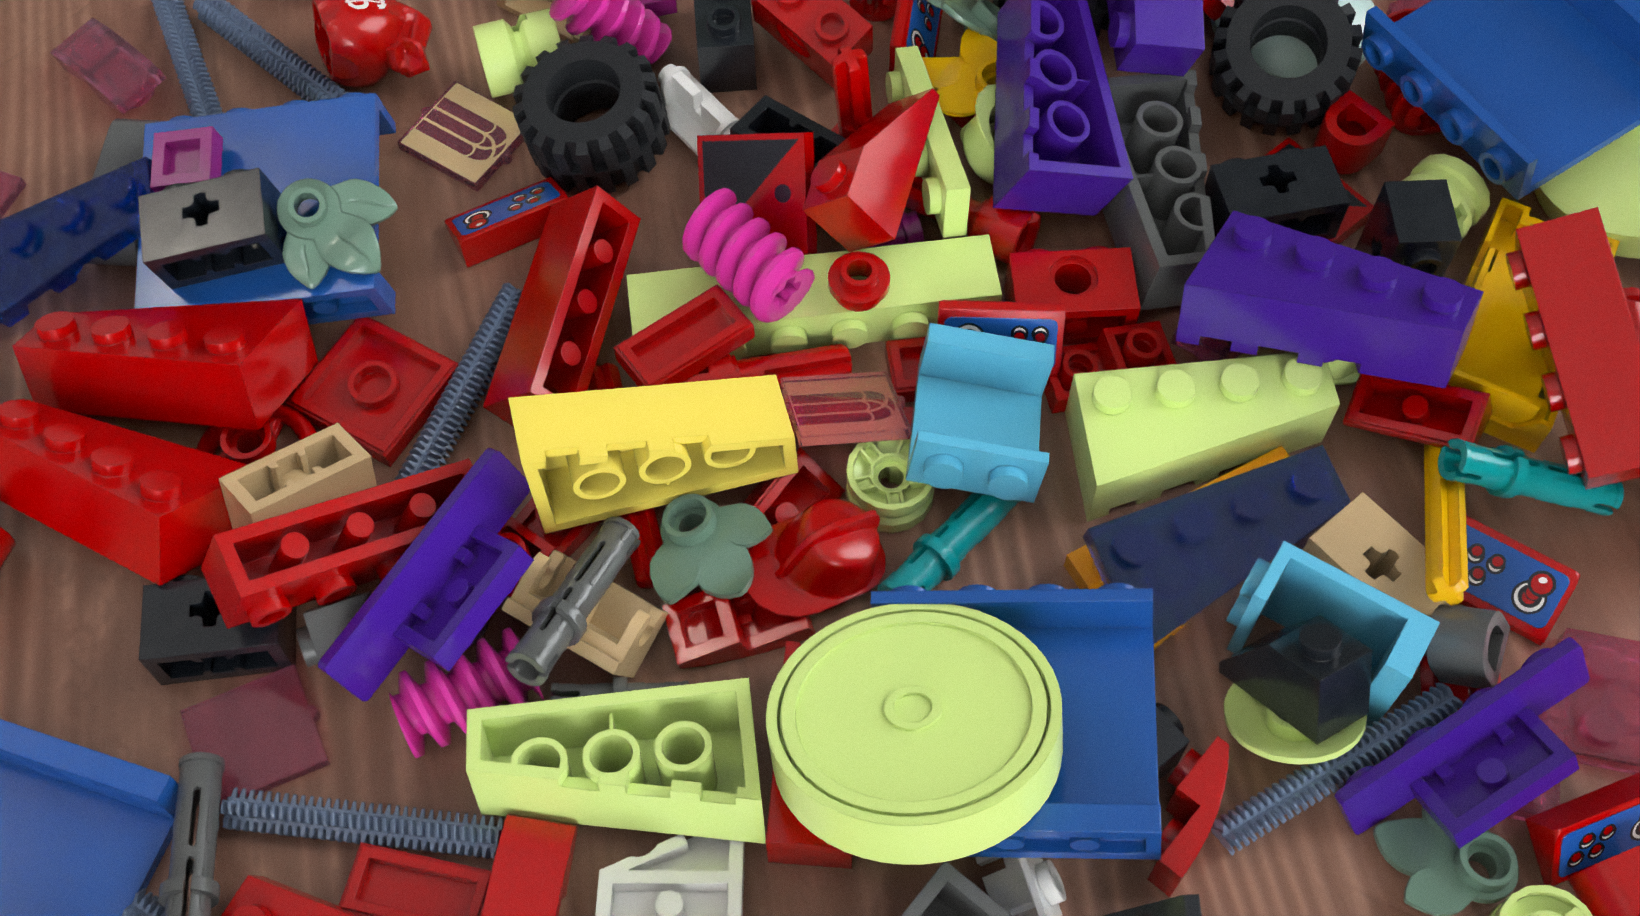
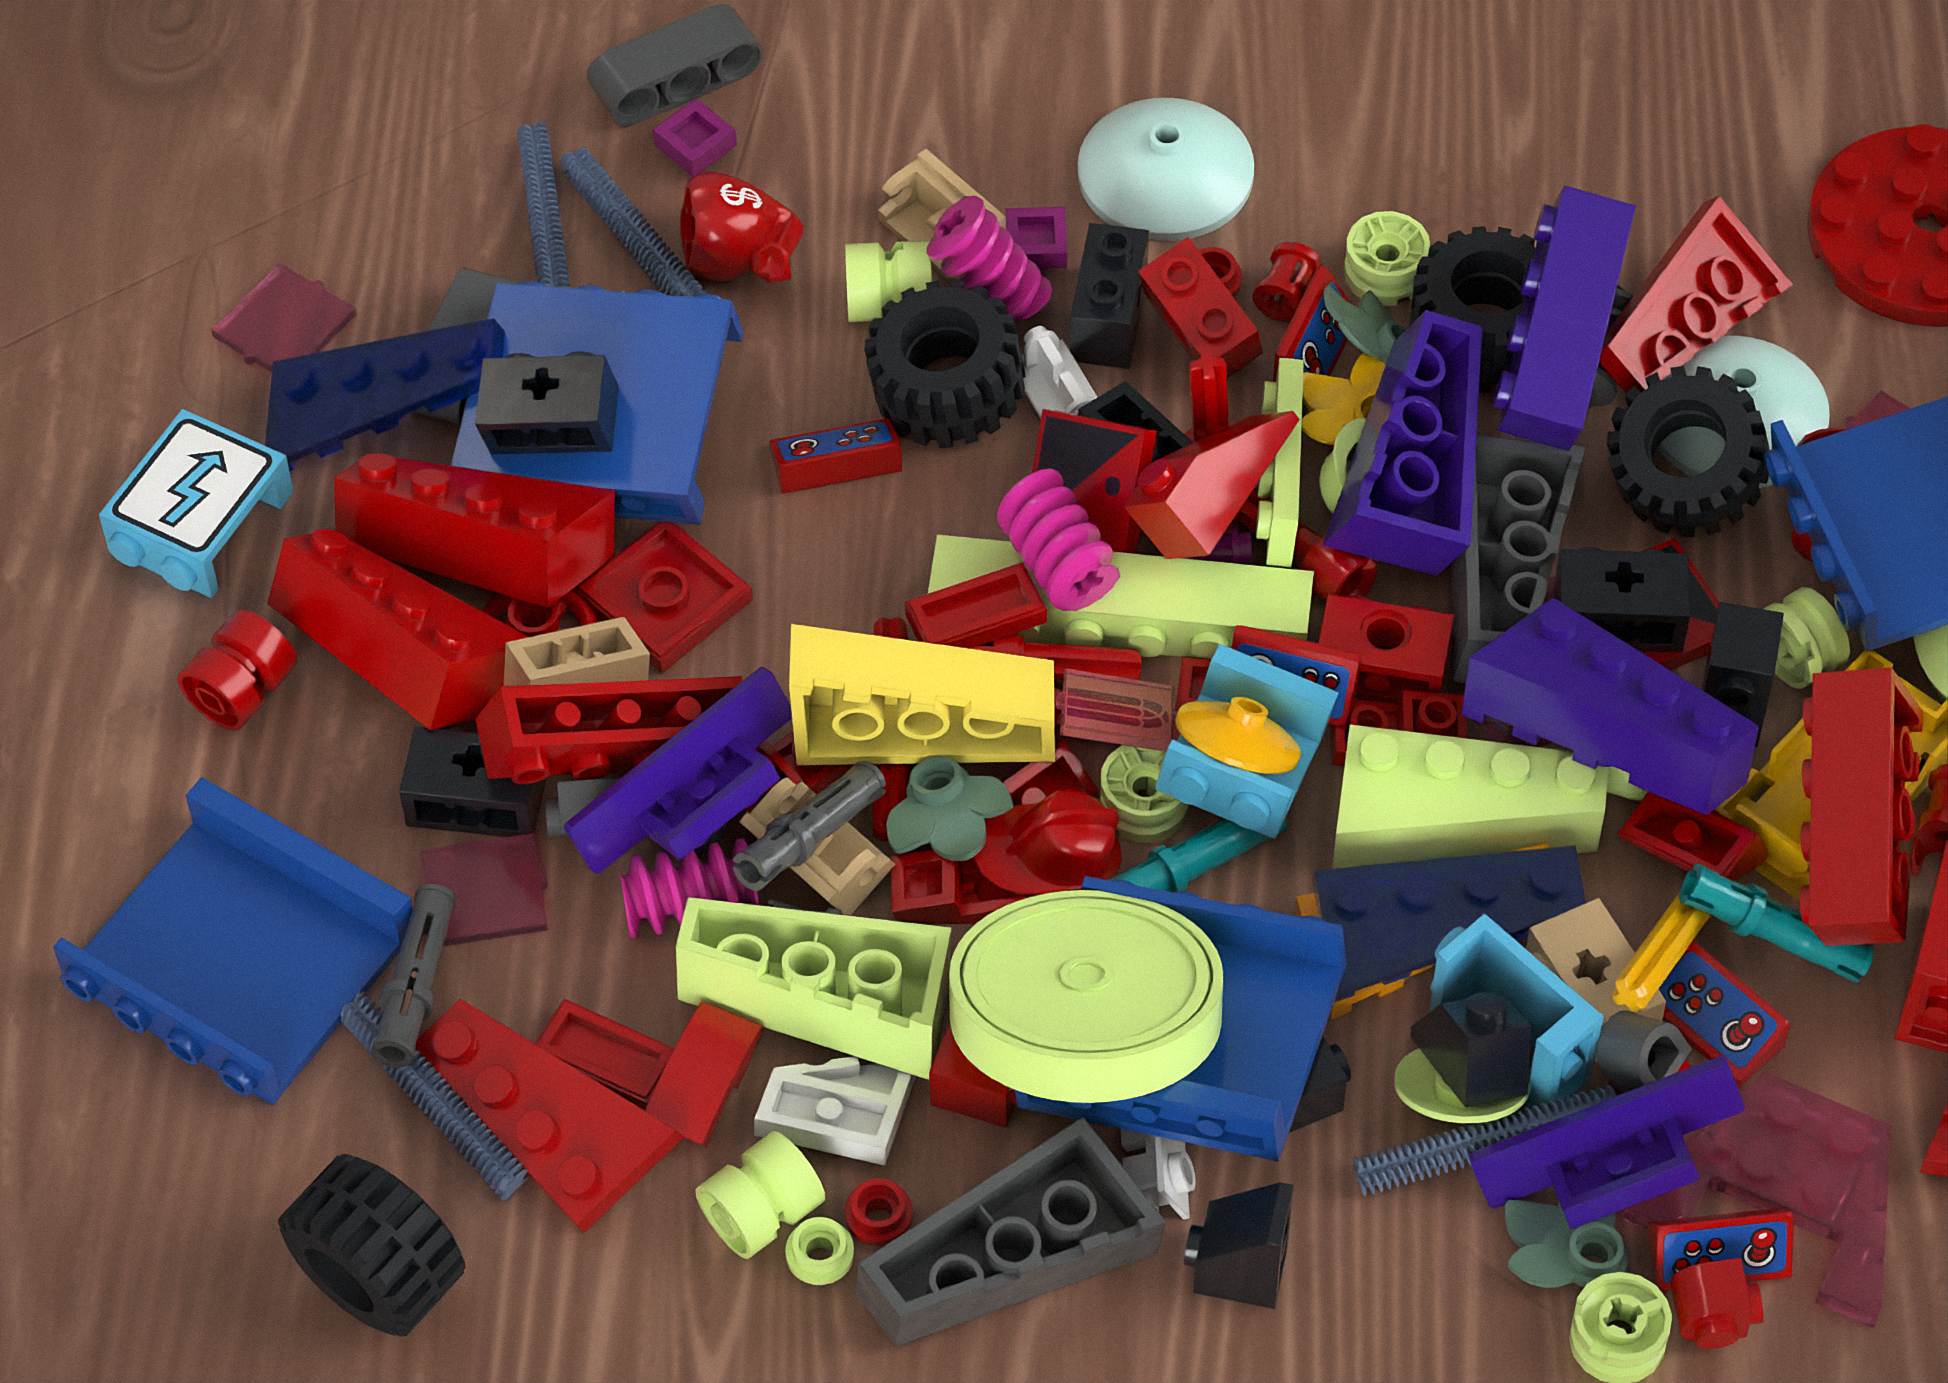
camera: 15 degrees right, 5 degrees down
(109, 66) = (463, 206): clear pink slope -> none
(185, 157) = (533, 328): magenta plate -> none
(337, 233) = (664, 434): sand green plate -> none
(360, 825) = (566, 984): sand blue axle -> none
(463, 387) = (760, 602): sand blue axle -> none
(464, 136) = (809, 356): piece -> none
(565, 300) = (872, 543): red brick -> none
(859, 294) = (1164, 602): red plate -> none
(974, 409) = (1238, 735): none -> yellow dish
(1194, 805) = (1343, 1133): red slope -> none
(1353, 133) = (1738, 549): red plate -> none

